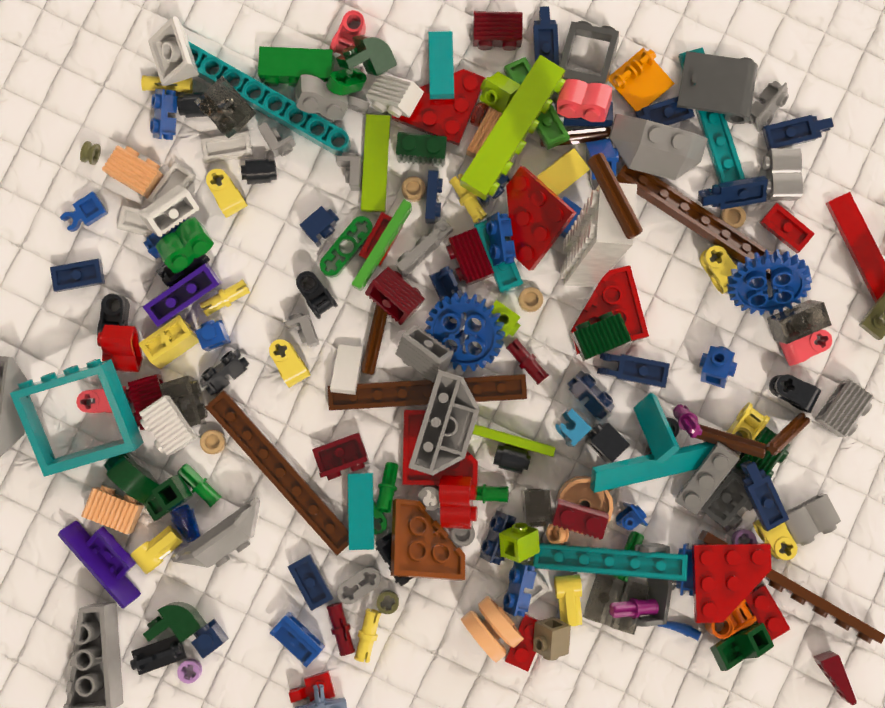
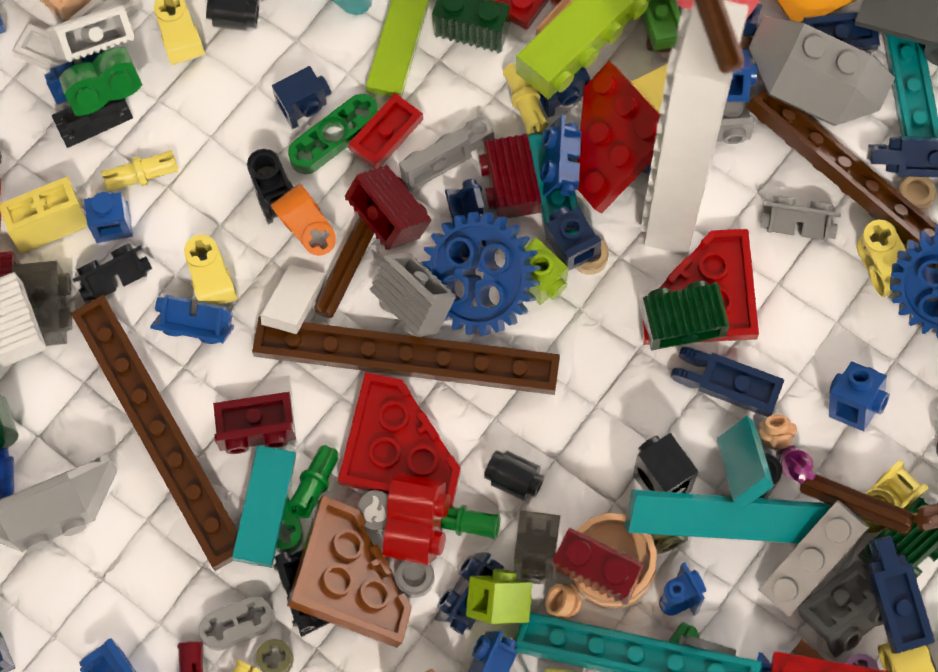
camera: 15 degrees right, 15 degrees down
(182, 294) = (80, 149): dark purple brick -> none
(199, 485) = (32, 426): green axle -> none
(212, 442) = (69, 369): tan tile -> none
(293, 398) = (209, 324): none -> blue hinge
(307, 332) = (246, 231): light grey bracket -> none
(310, 582) = (162, 602): dark blue plate -> none
(342, 314) = (301, 216): none -> orange piece
(354, 174) = (367, 30): light grey bracket -> none
(382, 245) = (384, 133): bright green tile -> none
(413, 189) = (449, 74): tan tile -> none
(434, 186) = (470, 98): dark blue plate -> none
(445, 426) = (420, 394): light grey wedge -> none
(514, 440) = (504, 439): lime tile -> none
(520, 303) = (576, 248): none -> dark blue brick
(527, 361) = (567, 339): dark red pin -> none
(574, 430) = (619, 440): dark azure hinge -> none
(598, 401) = (647, 392): dark blue hinge -> none
(670, 402) = (777, 432): none -> light nougat plate
(671, 249) = (815, 219): none -> light grey hinge

